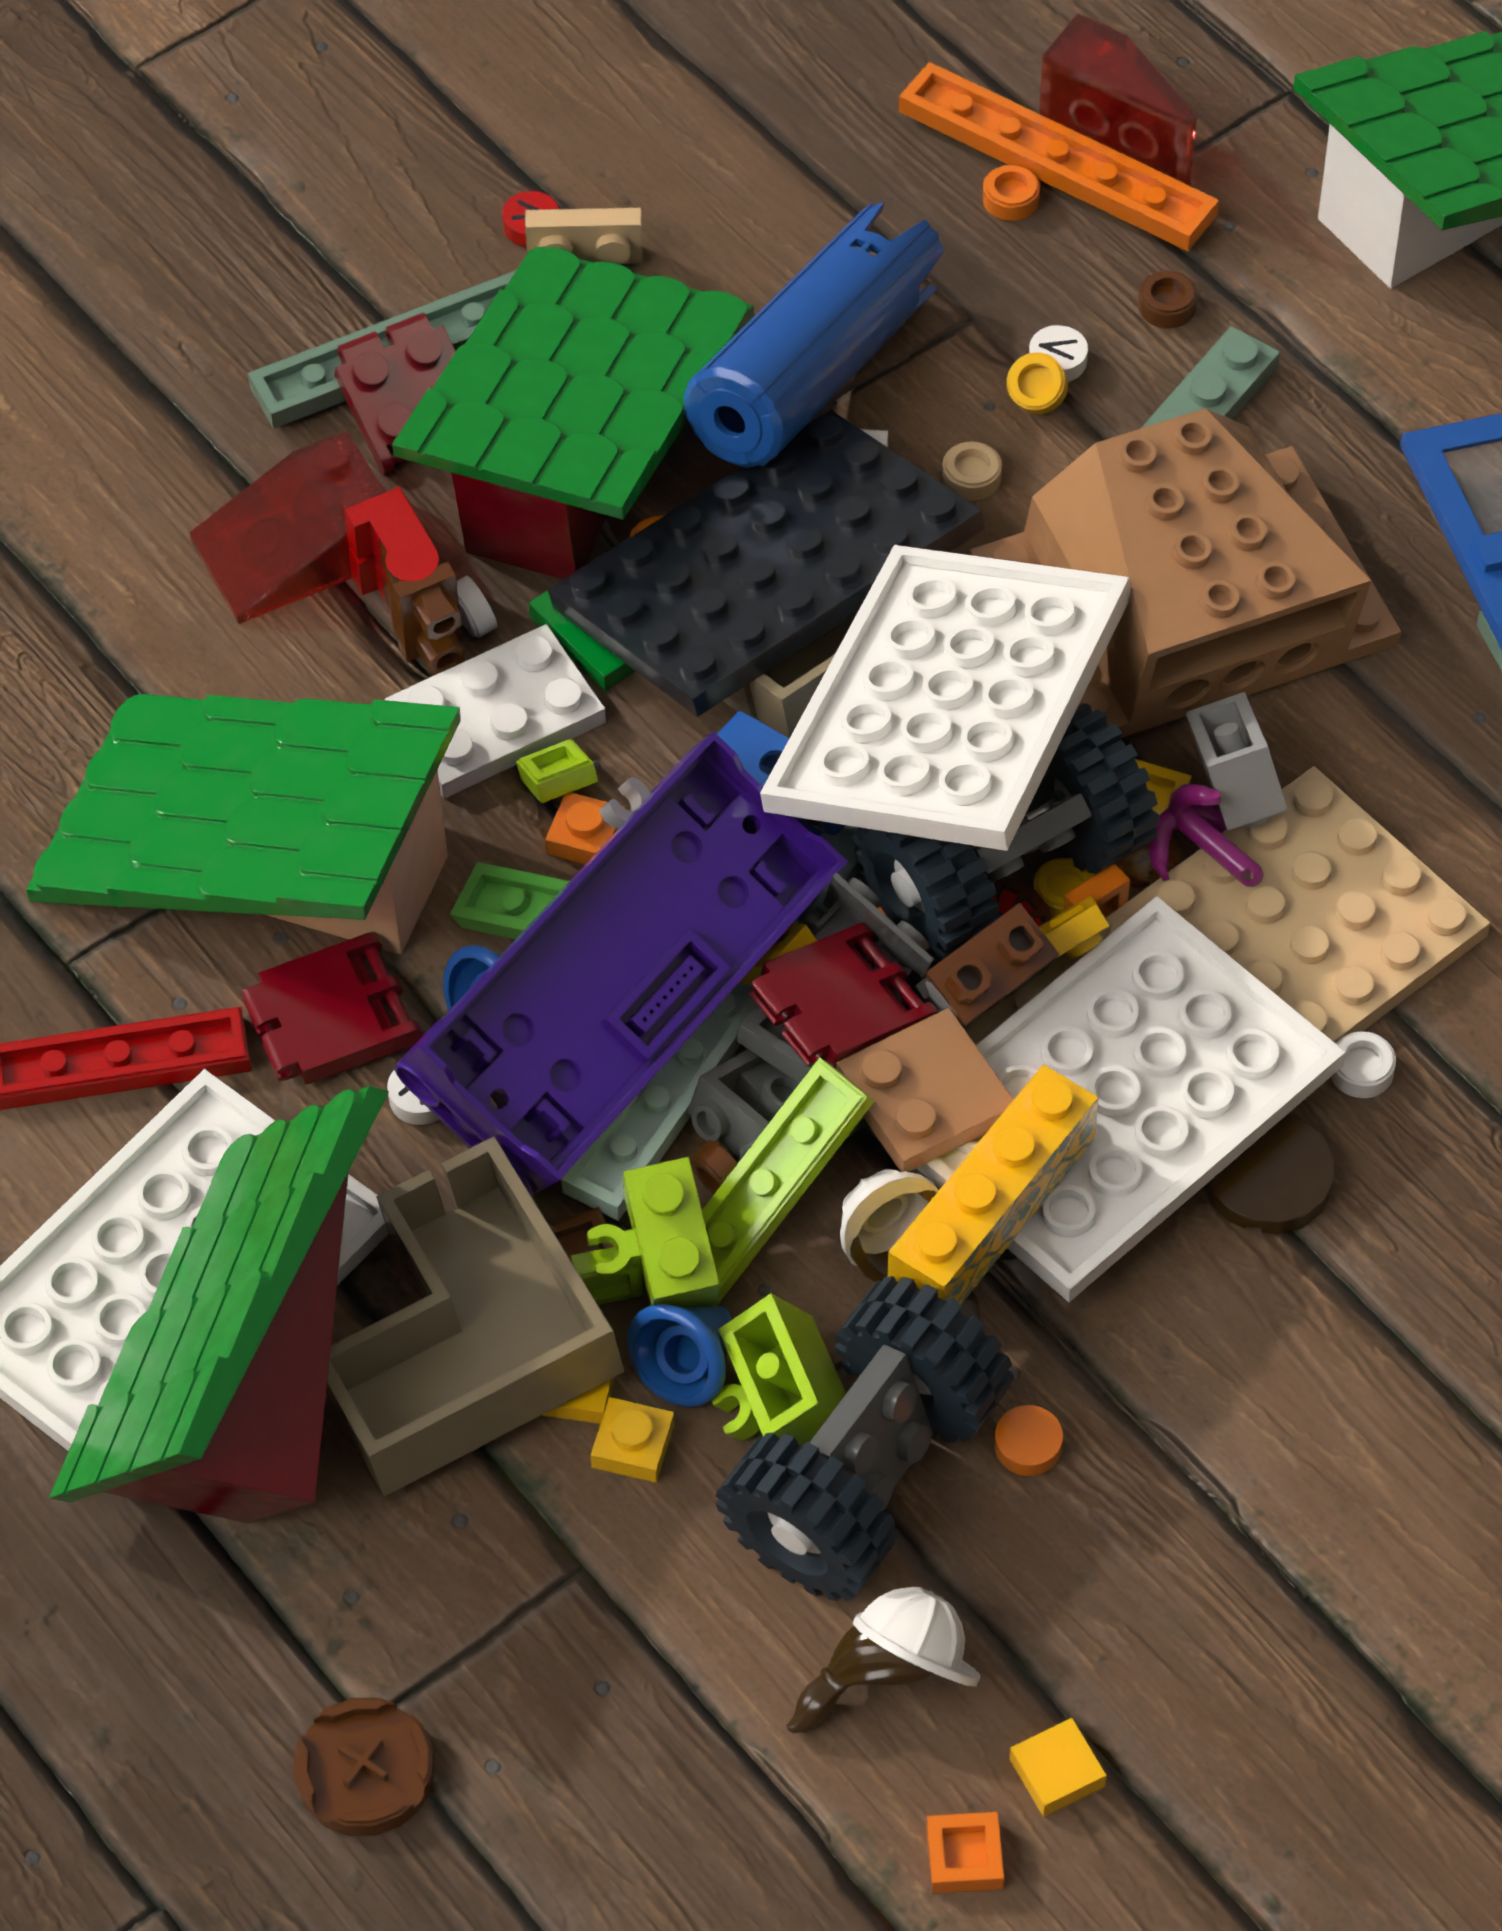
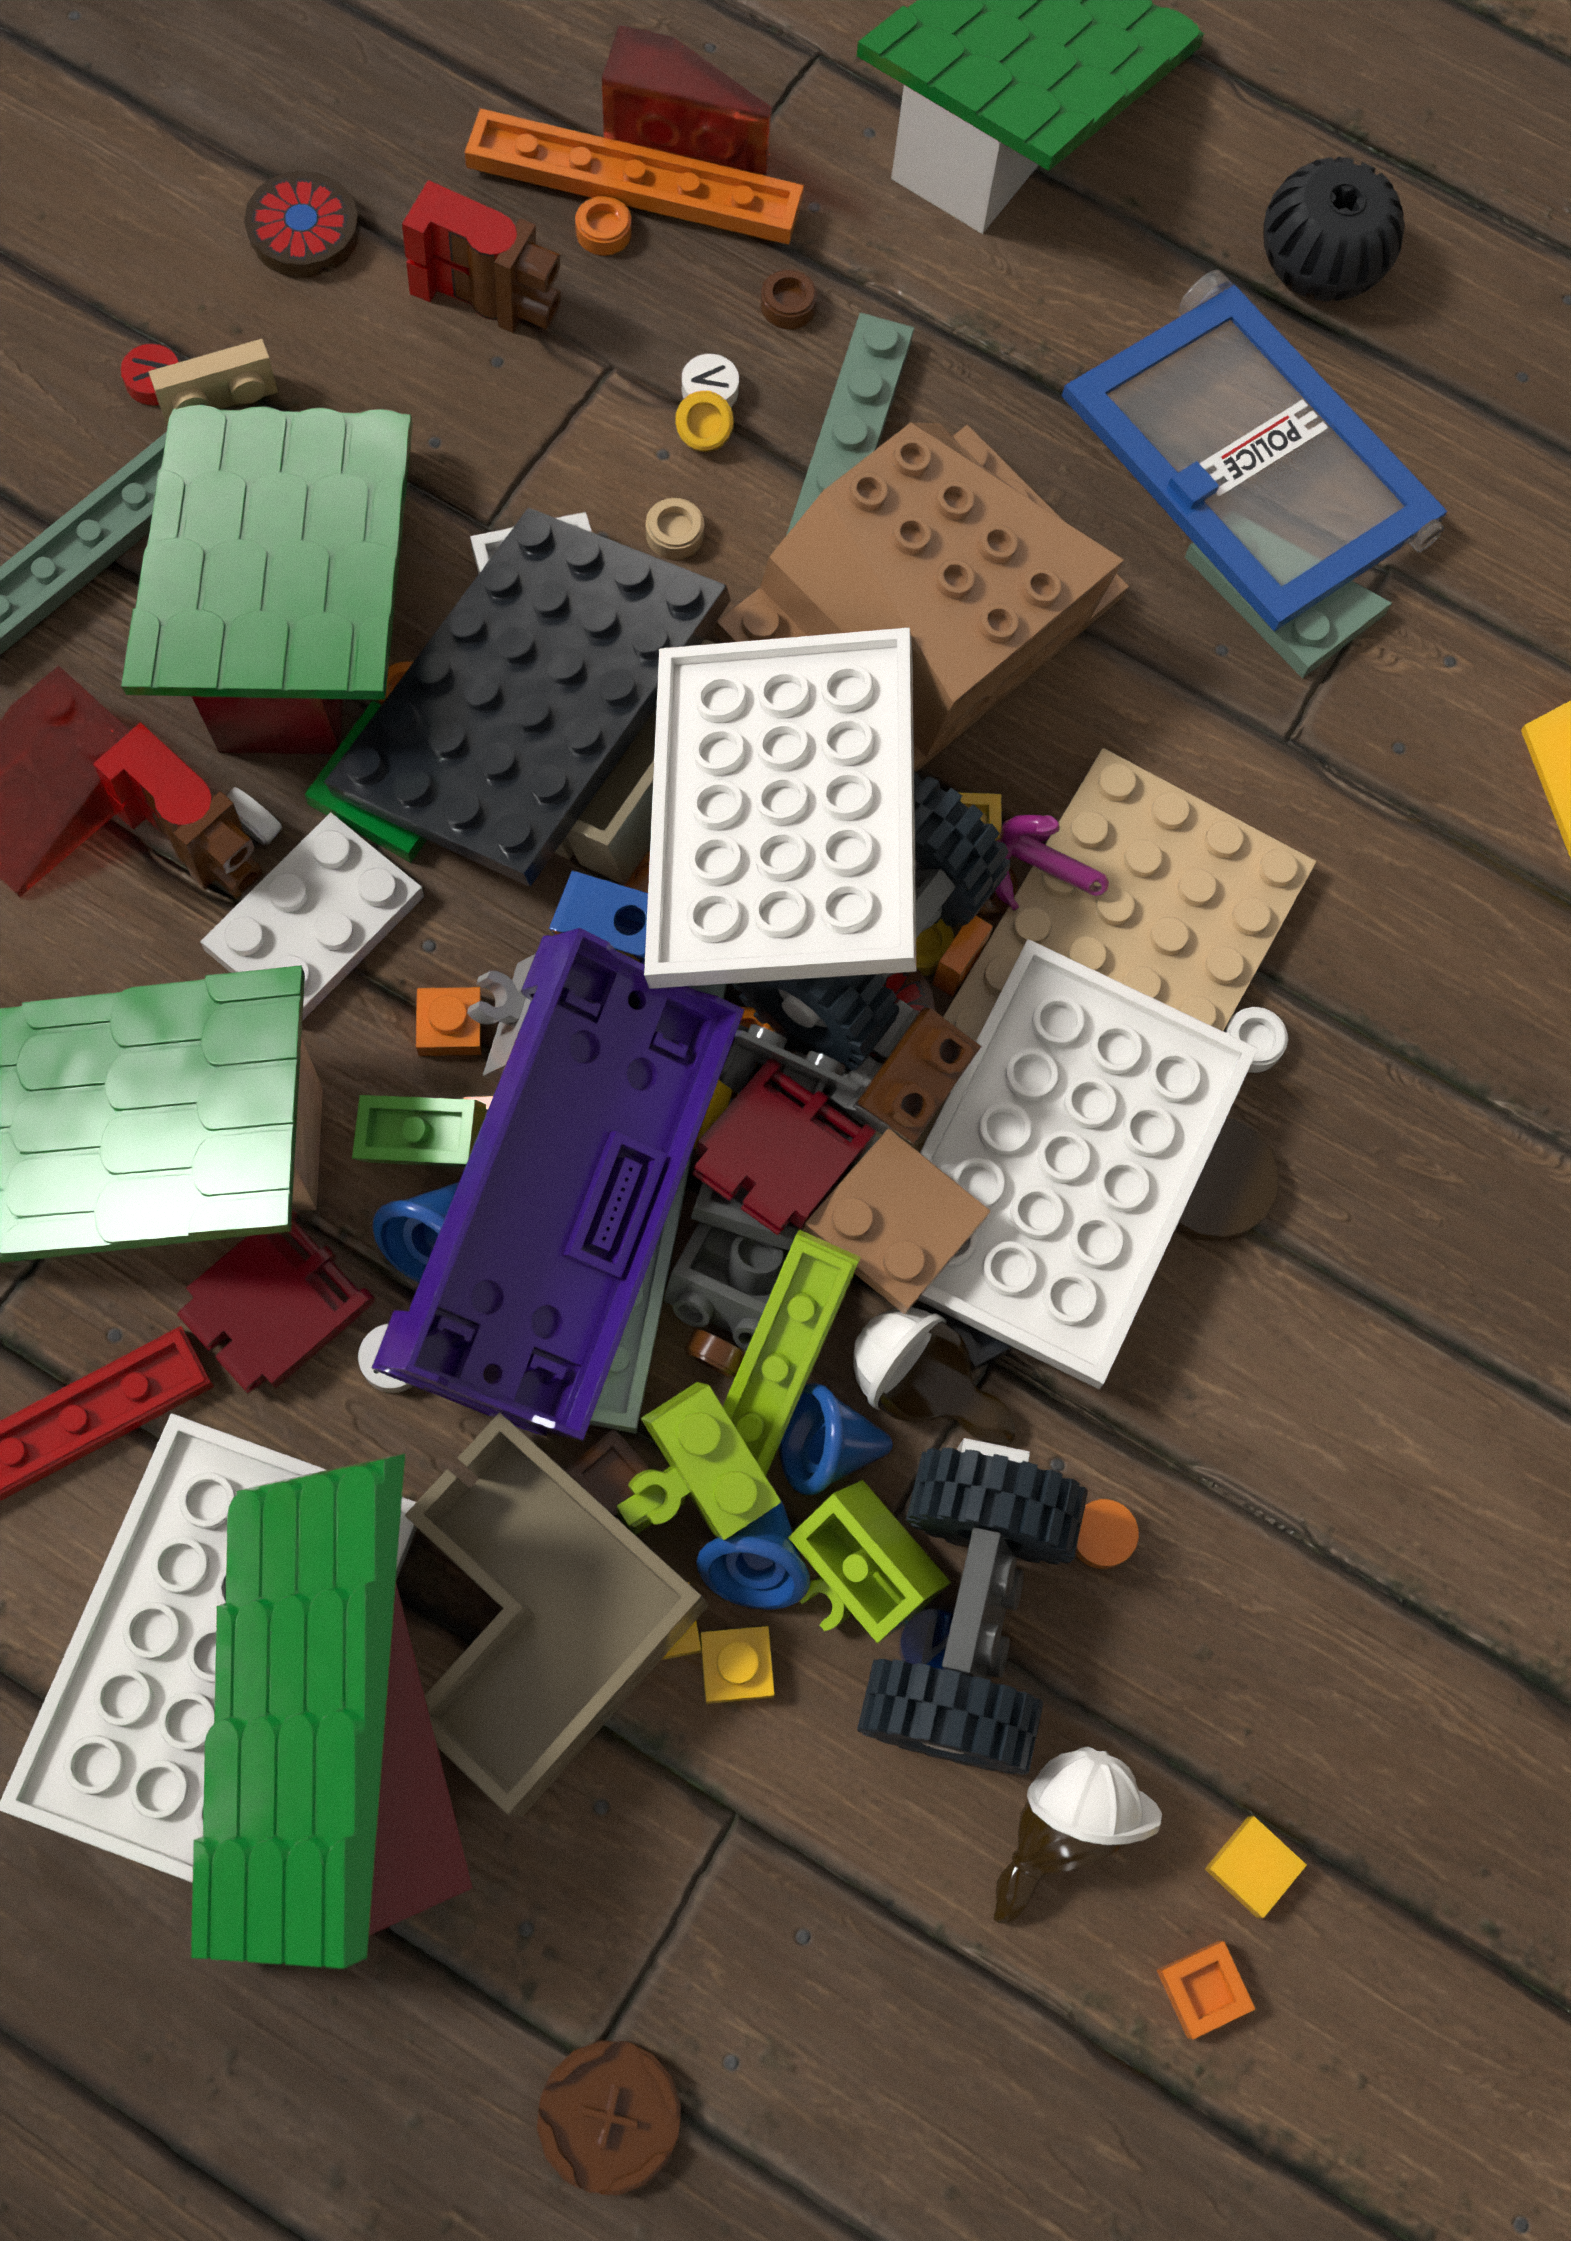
camera: 30 degrees left, 15 degrees up
(390, 381) = (87, 596): dark red plate -> none
(556, 770) = (399, 969): lime tile -> none
(722, 124) = (302, 223): none -> tile
(798, 1271) = (827, 1441): none -> blue hat
(810, 340) = (486, 444): blue piece -> none
(858, 166) = (479, 259): none -> hips
(997, 1187) = (1009, 1318): yellow brick -> none
(1076, 928) = (966, 996): yellow plate -> none
(1237, 761) = (1045, 770): light grey brick -> none

